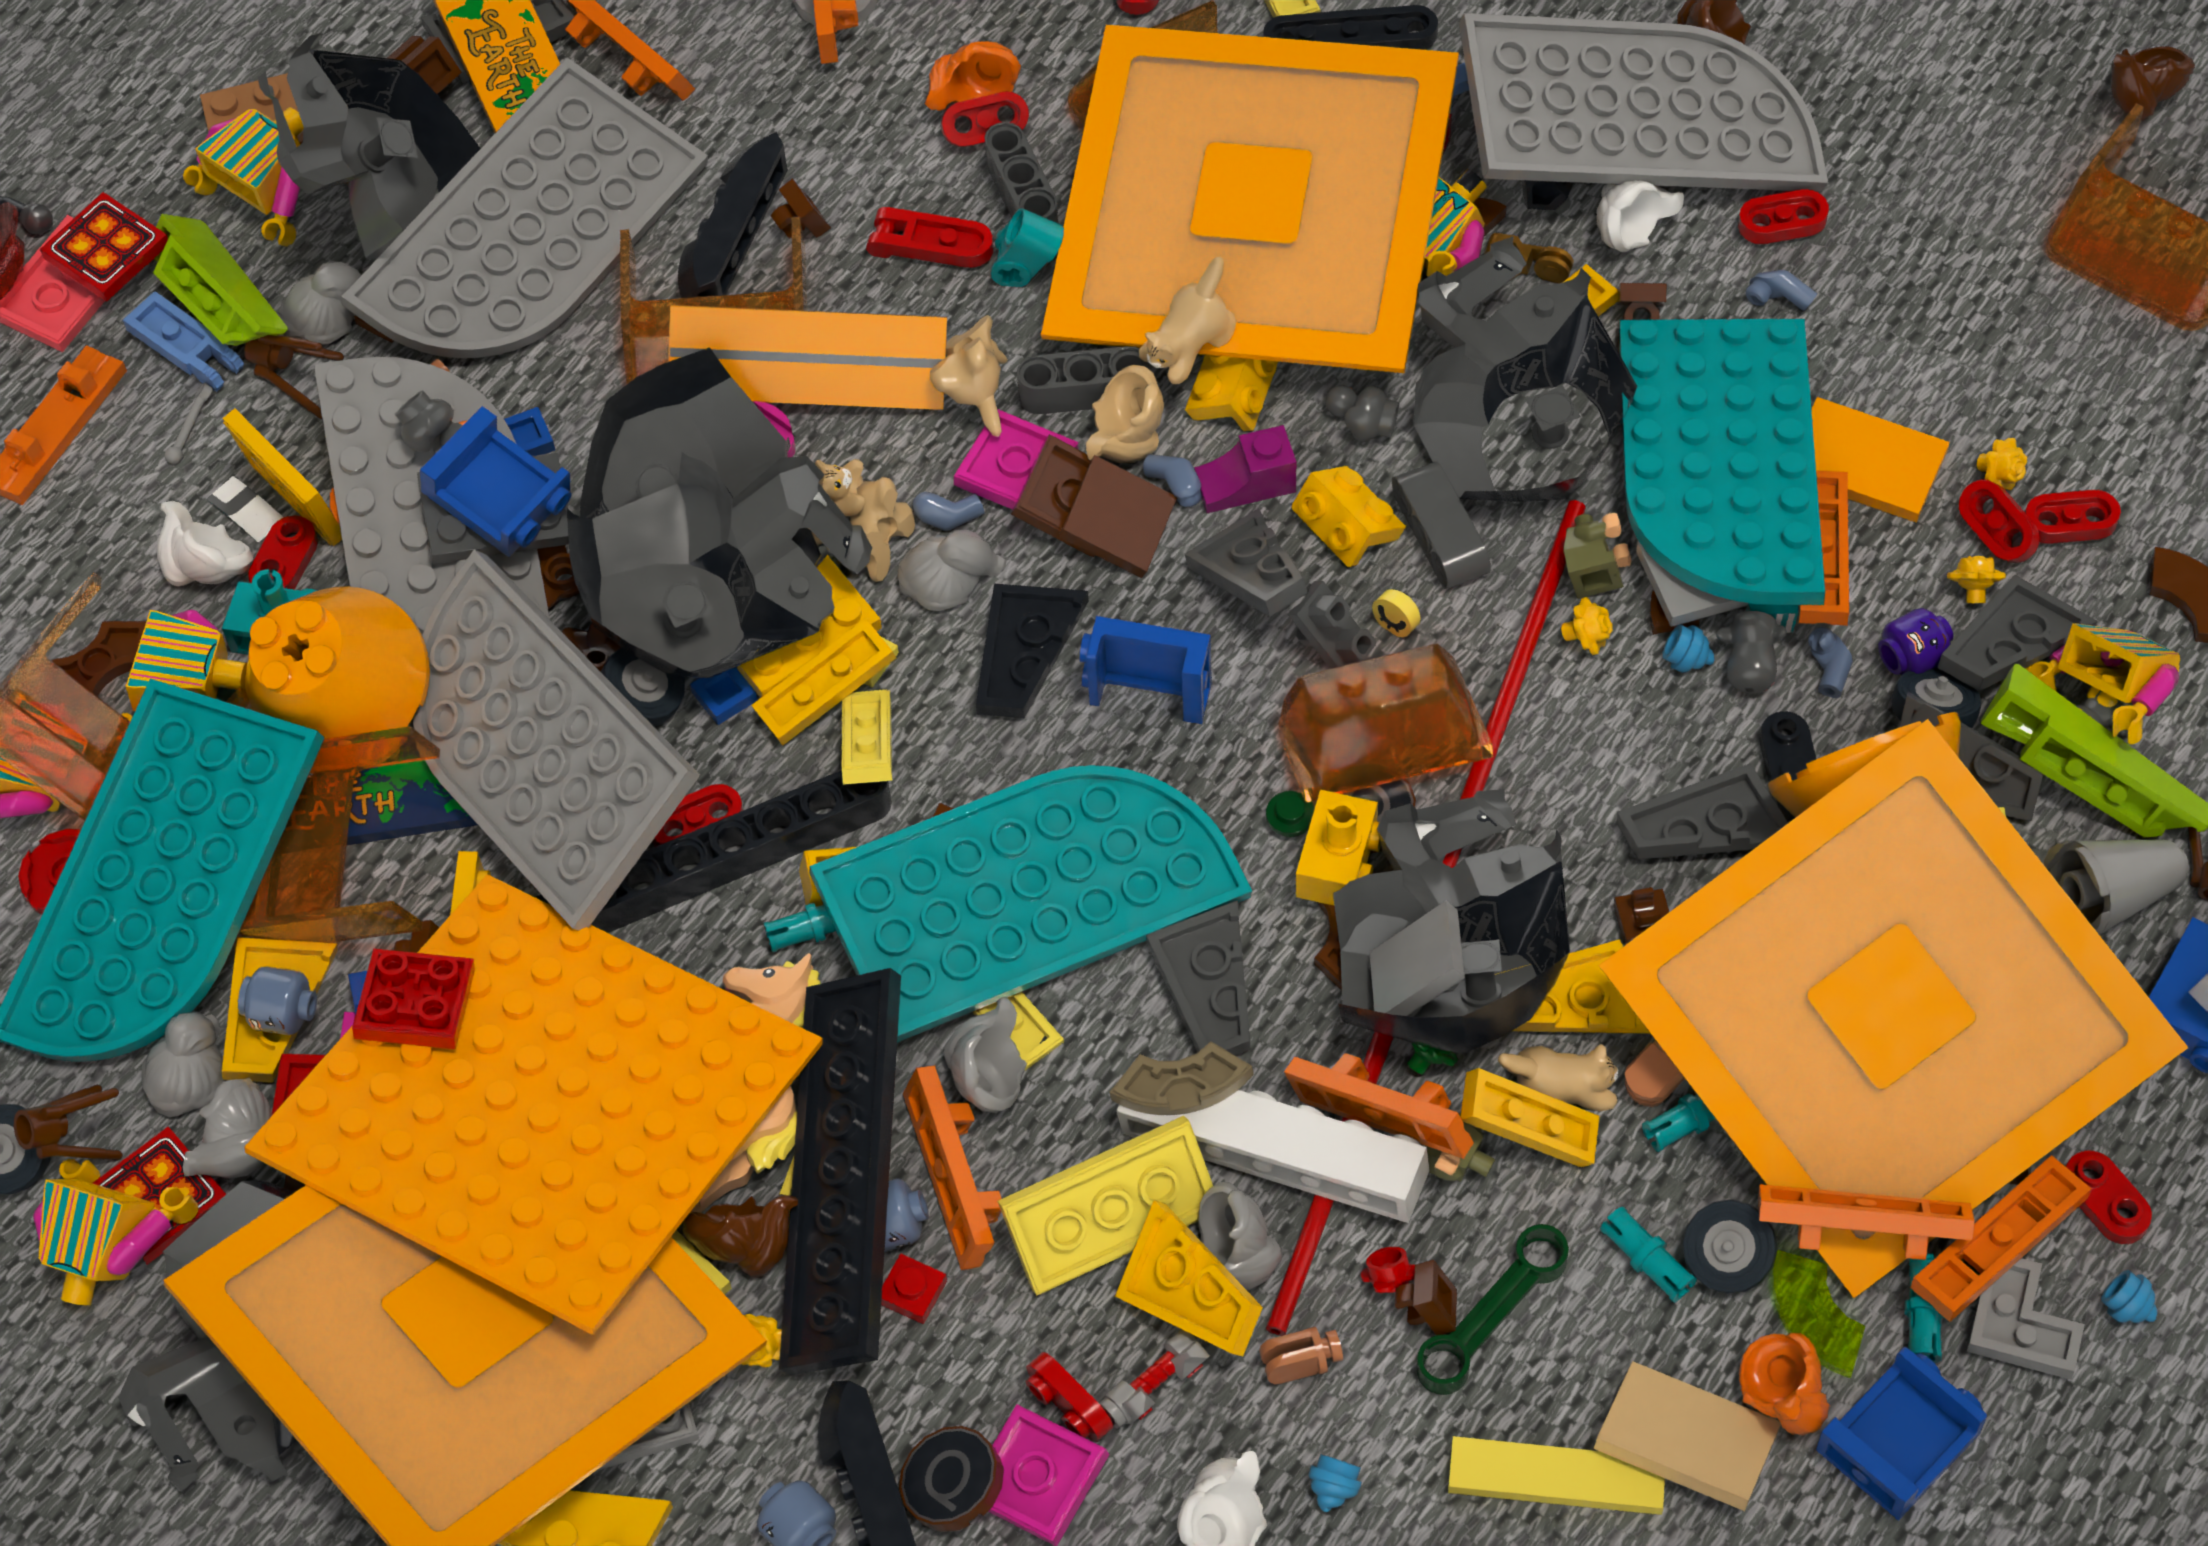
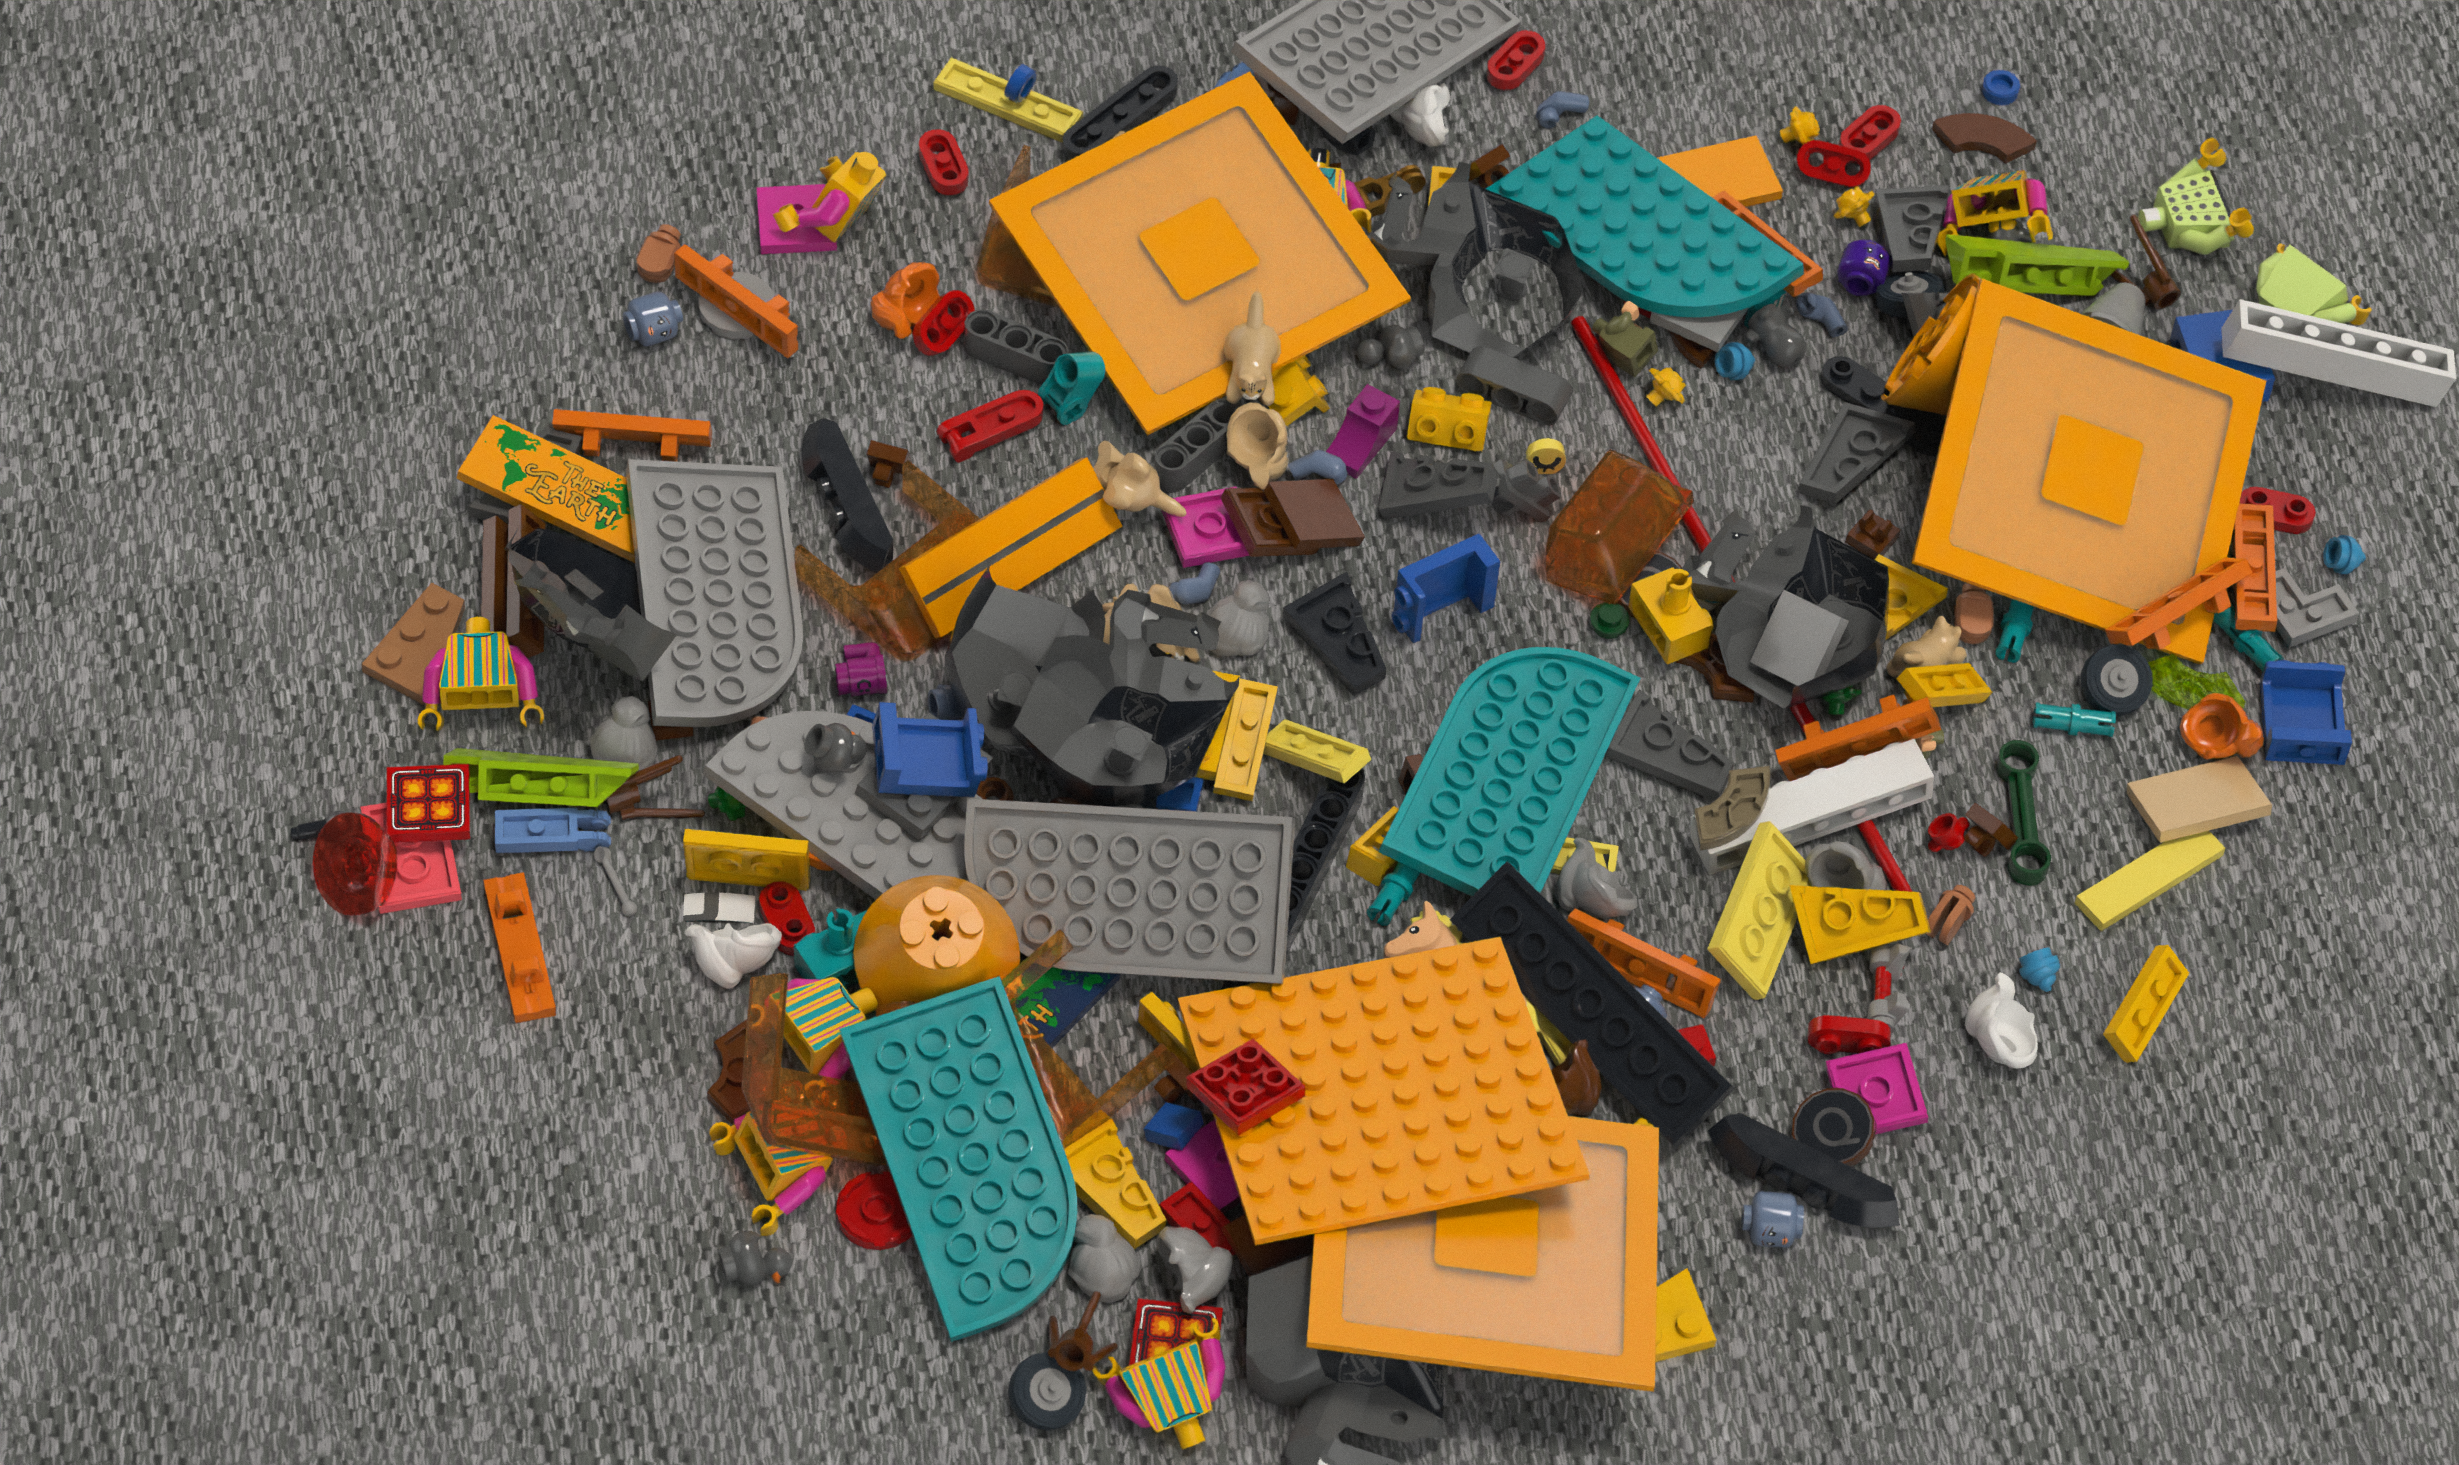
camera: 50 degrees left, 5 degrees down
(276, 1000) = (1129, 1169): sand blue head -> none
(575, 387) = (862, 671): none -> magenta piece

